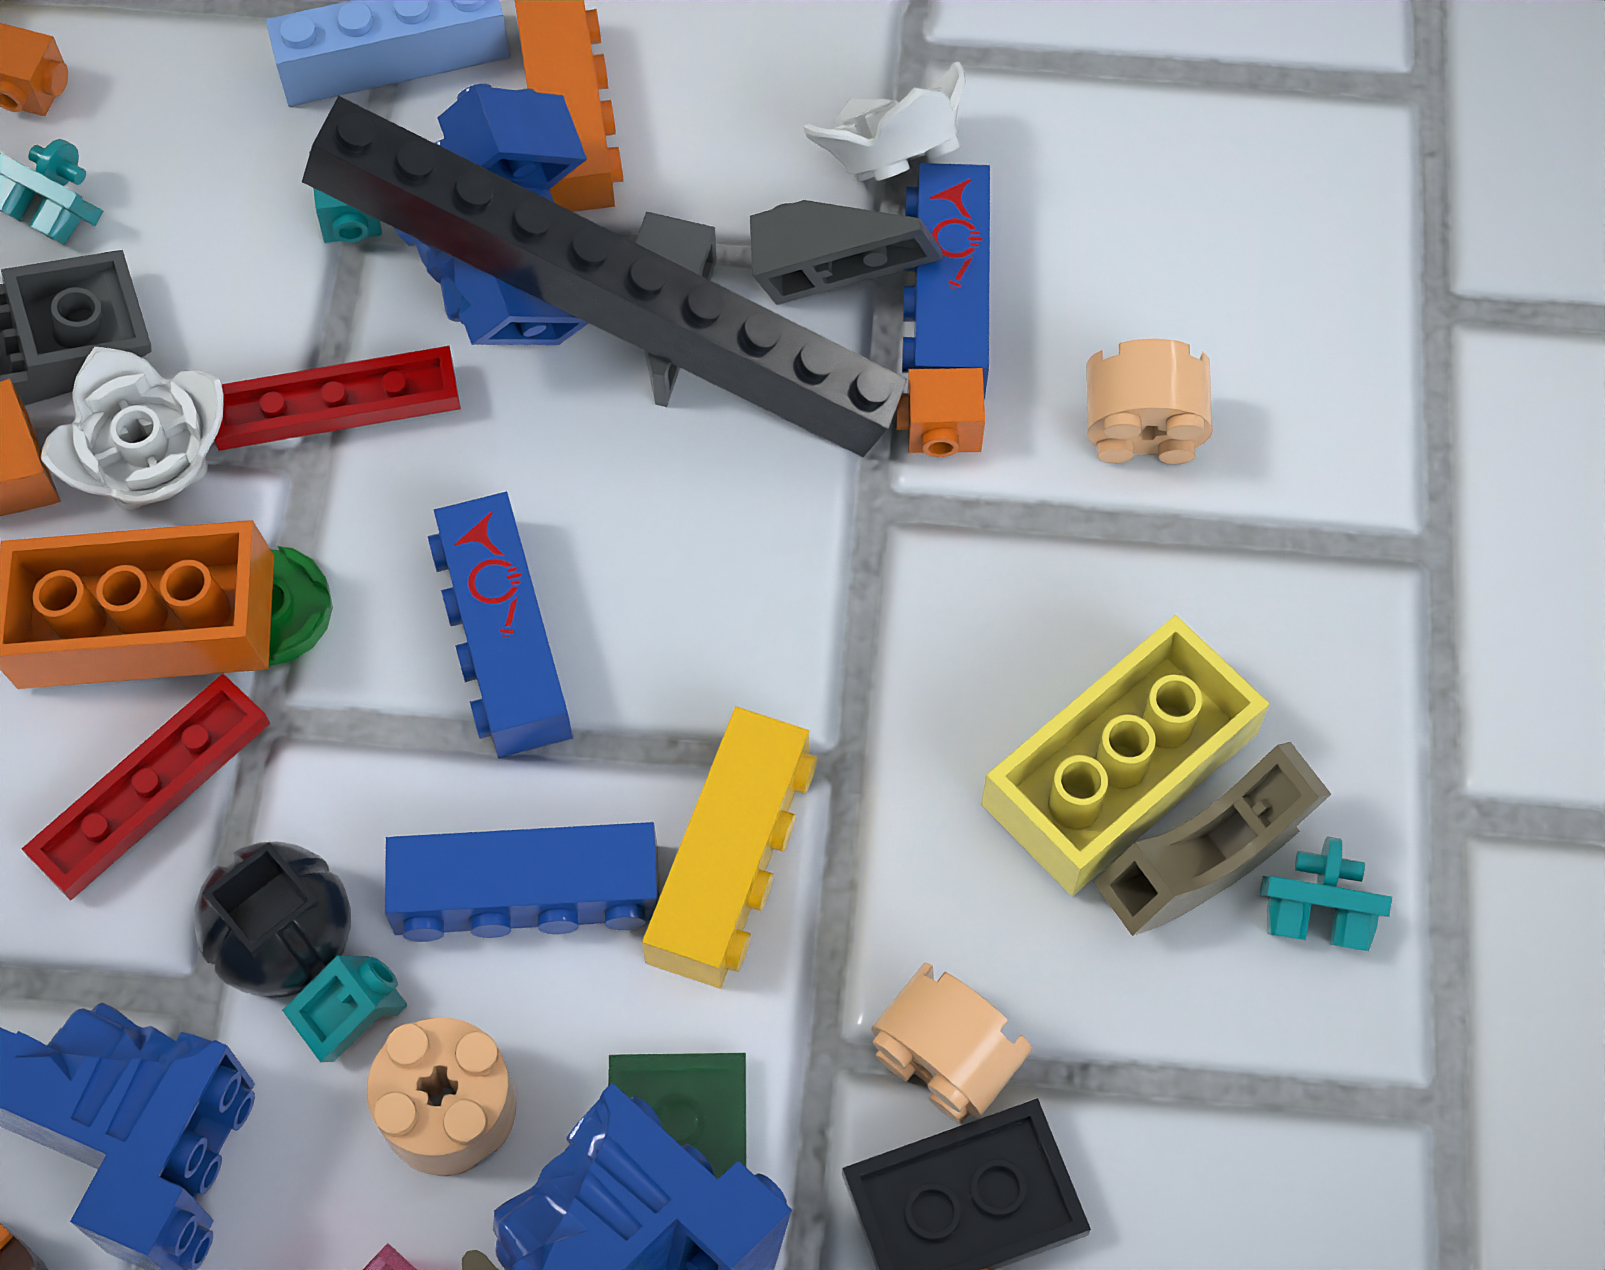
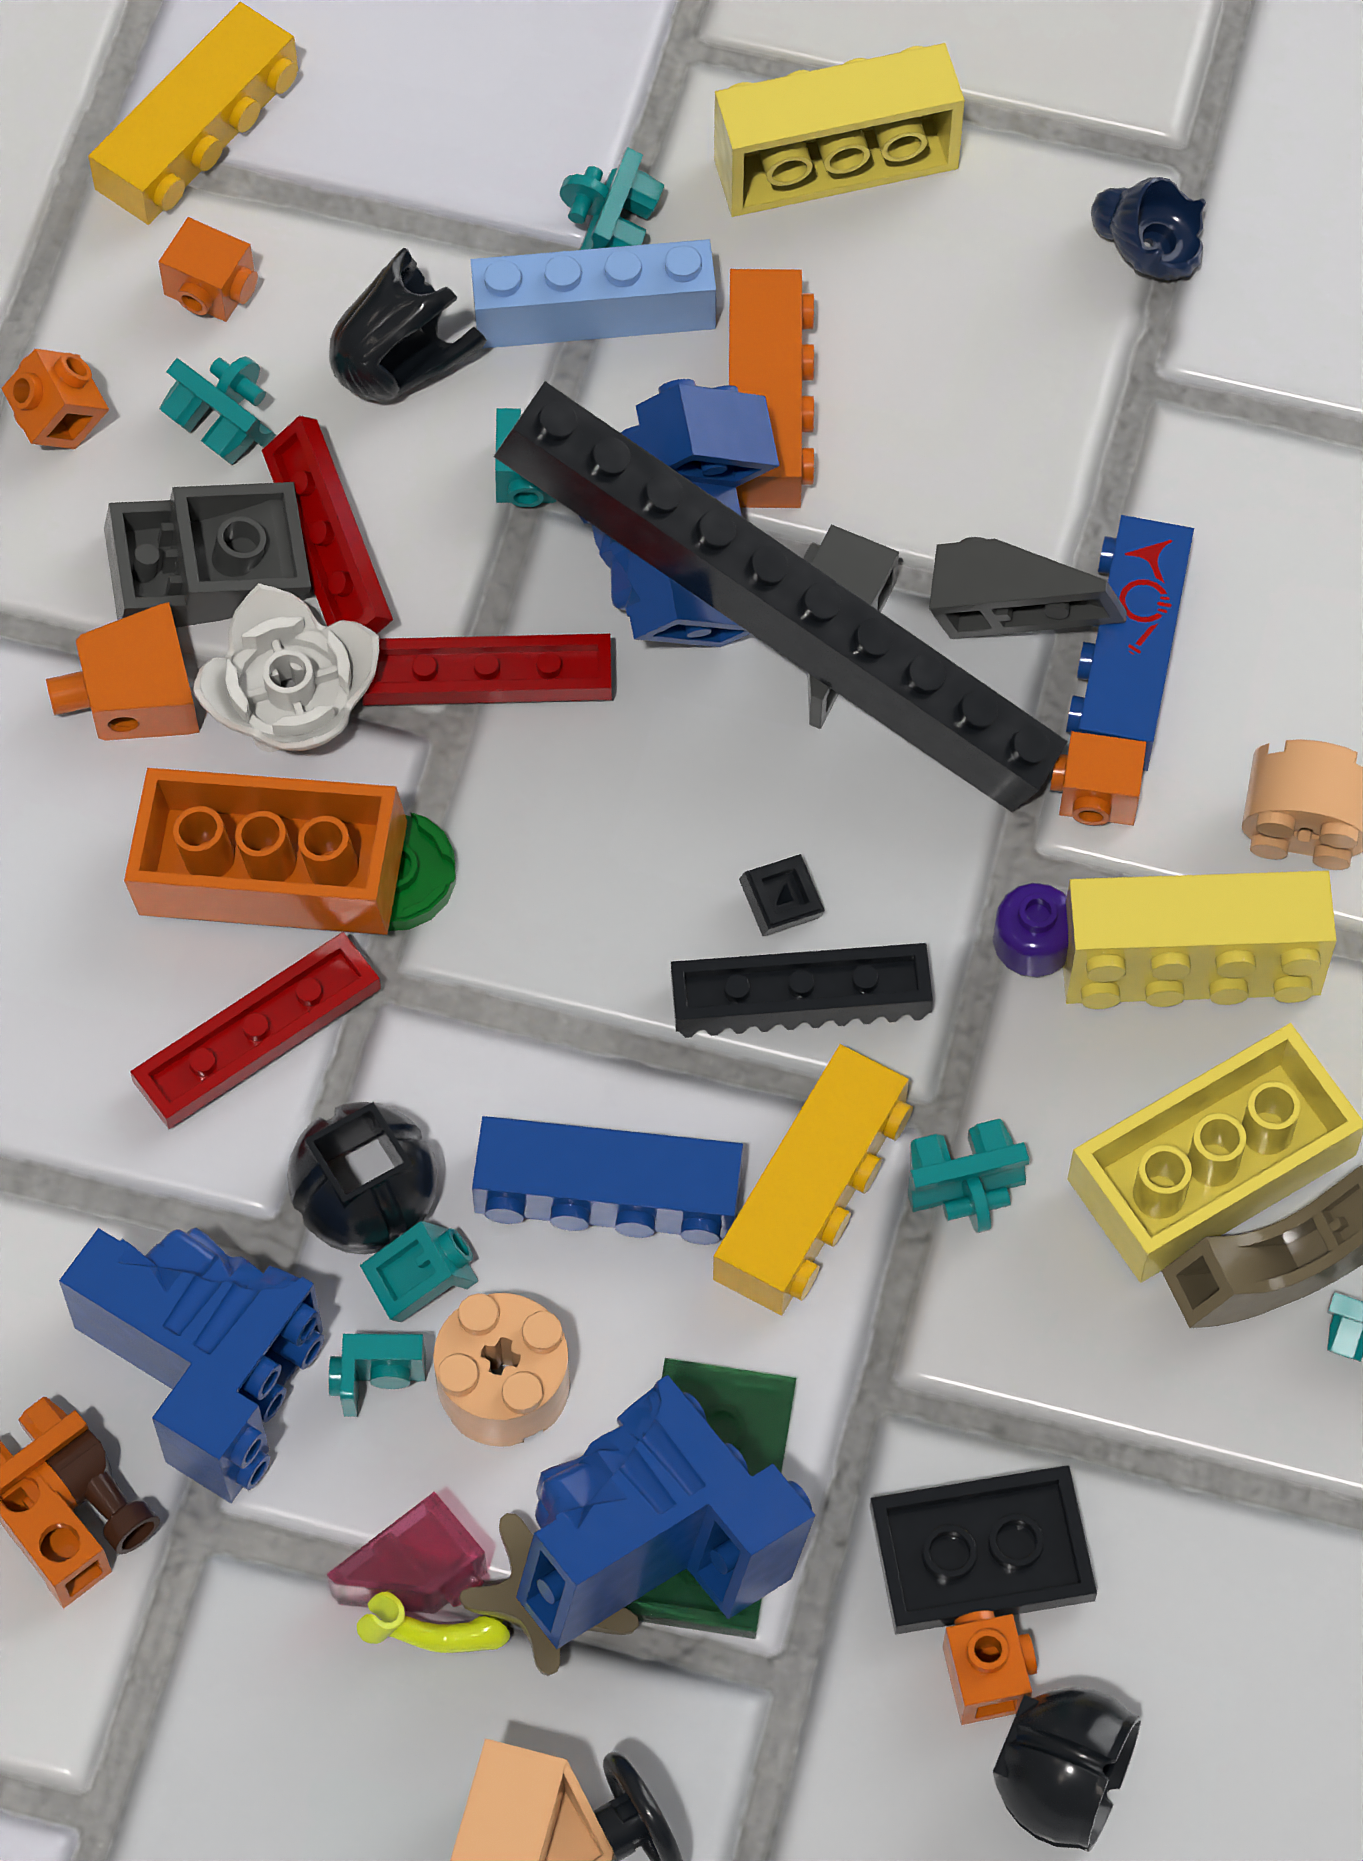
camera: 10 degrees right, 0 degrees up
(164, 293) = (332, 541): none -> red plate
(201, 98) = (391, 334): none -> black hair
(318, 1106) = (382, 1359): none -> teal bracket
(502, 626) = (622, 926): blue brick -> none
(654, 569) = (781, 895): none -> black tile
(687, 658) = (801, 988): none -> black gear
(884, 134) = (1089, 474): white brick -> none
(886, 825) = (969, 1183): none -> teal hips
(907, 564) = (1032, 930): none -> dark purple head
(949, 1042) = (992, 1397): light nougat brick -> none
(1067, 546) = (1198, 938): none -> light yellow brick

